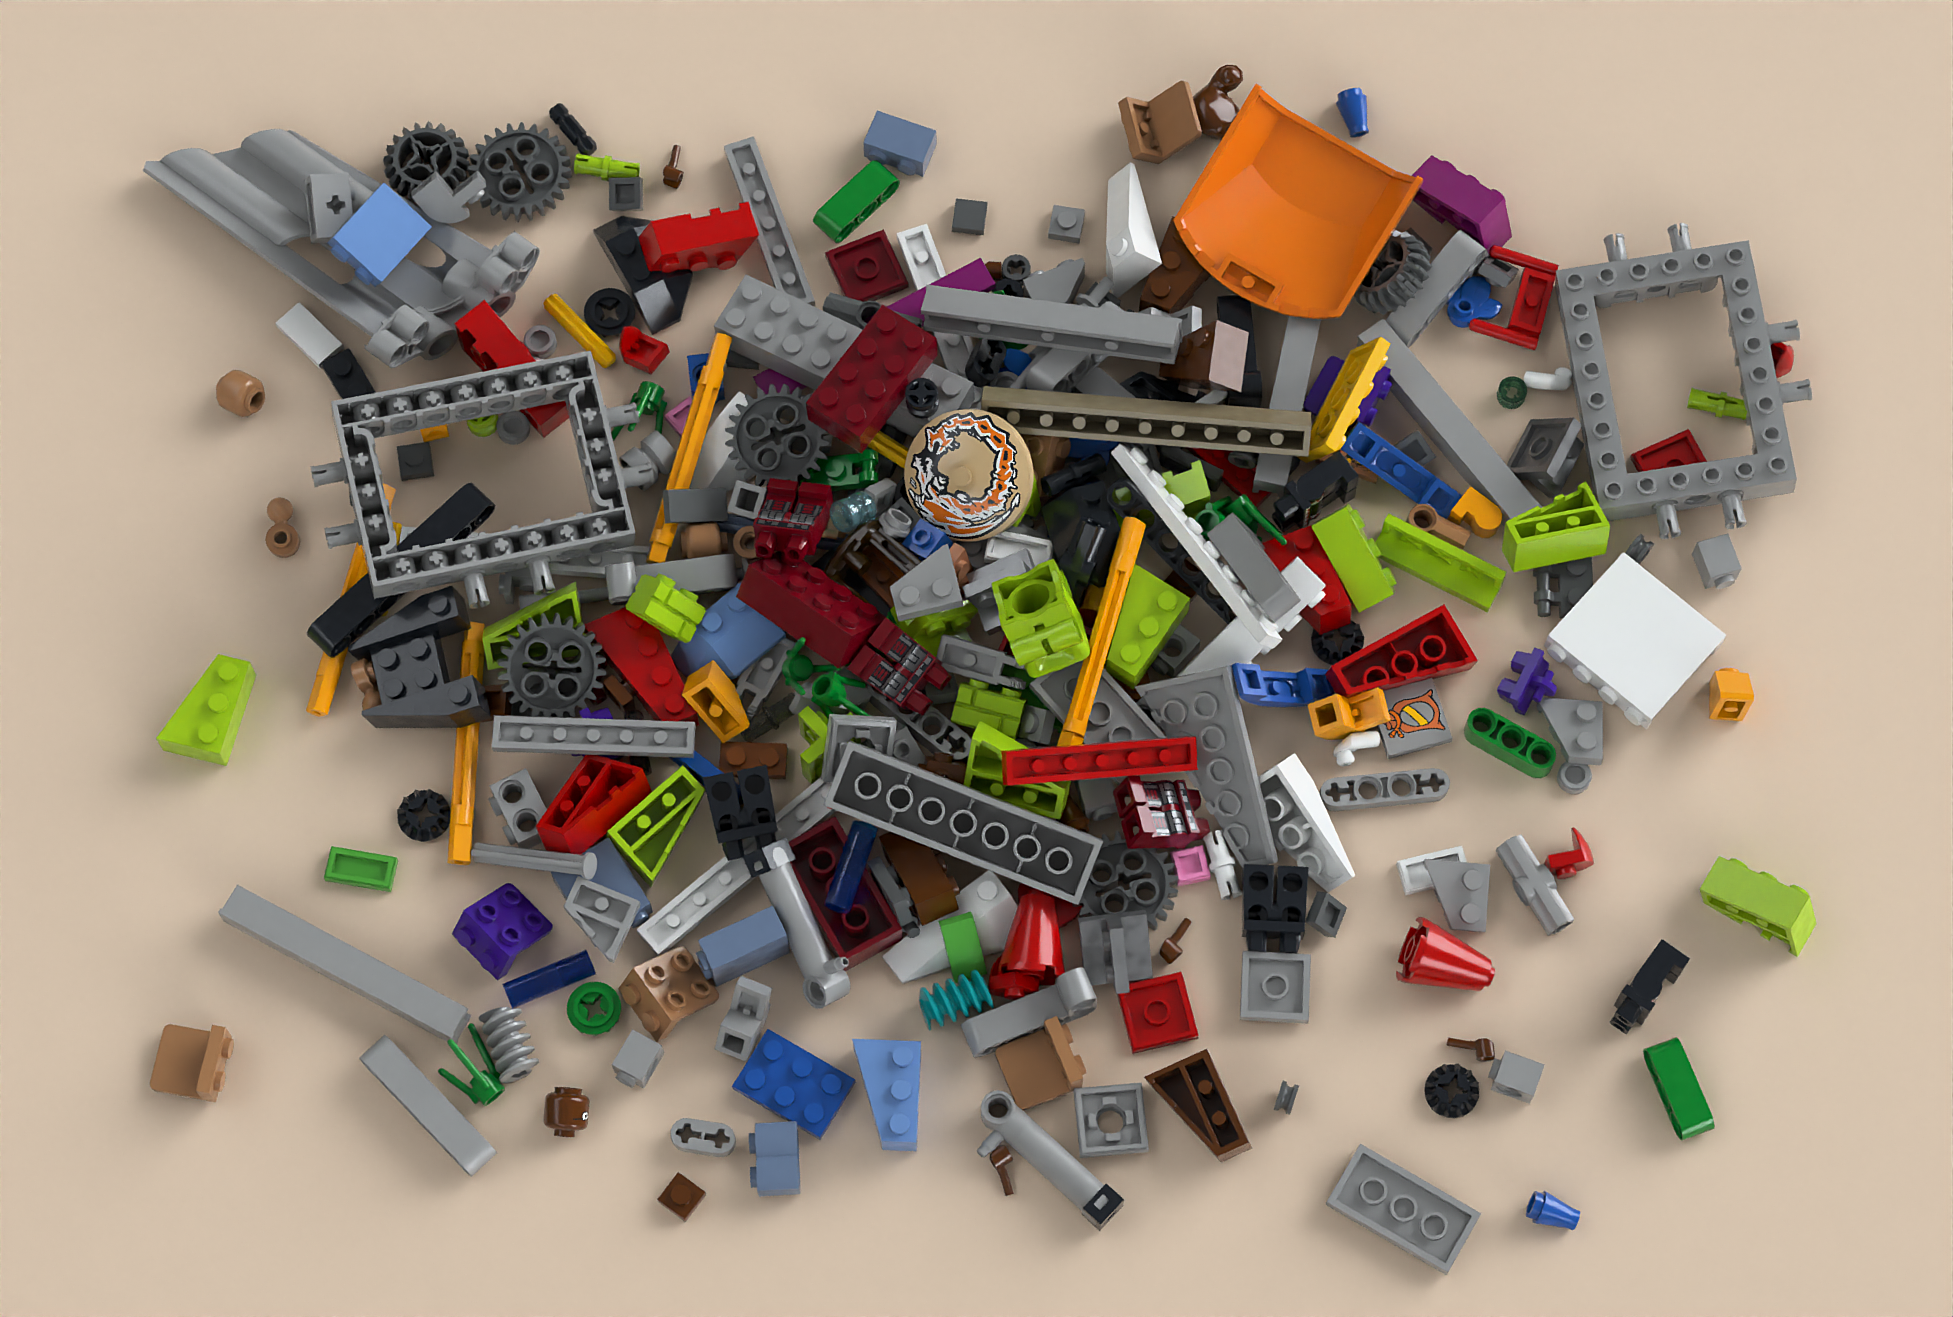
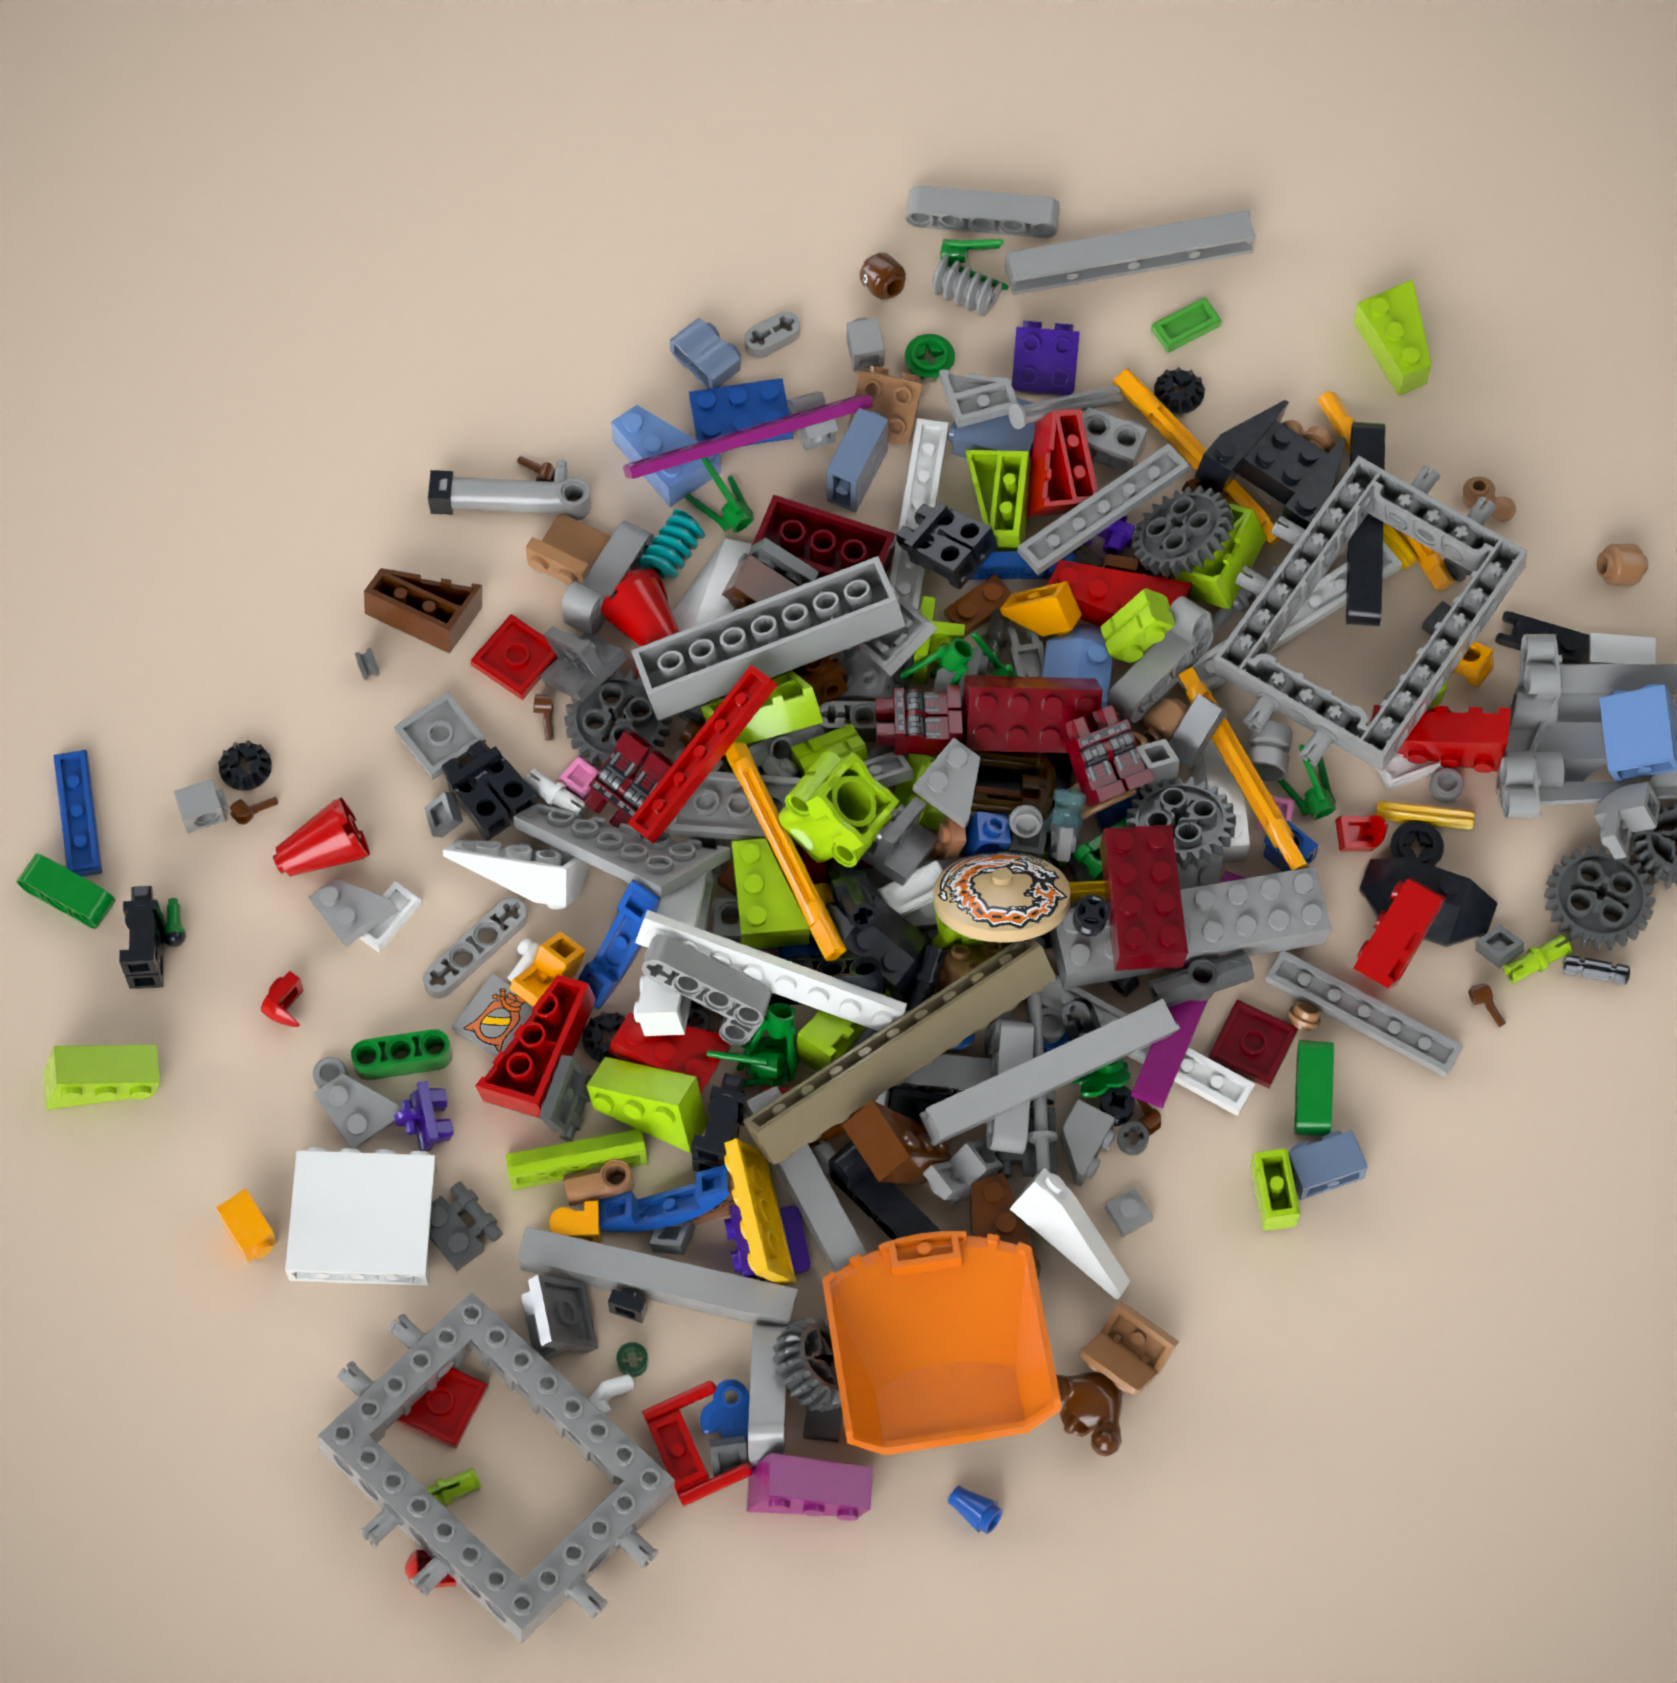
camera: 140 degrees right, 5 degrees down
(192, 1062) = (1169, 121): medium nougat bracket -> none
(549, 978) = (982, 344): clear blue piece -> none
(681, 1197) = (751, 289): reddish brown plate -> none
(813, 254) = (1304, 1016): none -> medium nougat plate
(821, 1023) = (747, 436): none -> magenta tile
(823, 975) = (843, 500): light grey piece -> none
(851, 867) = (820, 543): clear blue piece -> none
(877, 992) = (735, 512): none -> green plant
(954, 149) = (1275, 1189): none -> lime brick
(962, 945) = (698, 580): bright green tile -> none
(969, 216) = (1213, 1154): dark grey tile -> none
(1121, 1098) = (486, 536): light grey piece -> none
(1403, 1209) = (216, 653): light grey plate -> none
(1404, 611) = (566, 1098): none -> dark grey plate
(1487, 426) = (628, 1304): none -> black plate
(1534, 885) = (297, 957): light grey piece -> none
(1551, 1211) = (101, 732): blue cone -> none
(1557, 533) = (492, 1245): lime wedge -> none
(1612, 988) = (174, 933): none -> green piece
(1619, 1157) = (77, 813): none -> blue tile
(1639, 549) = (417, 1299): dark grey bush -> none
(1717, 562) = (341, 1338): light grey brick -> none

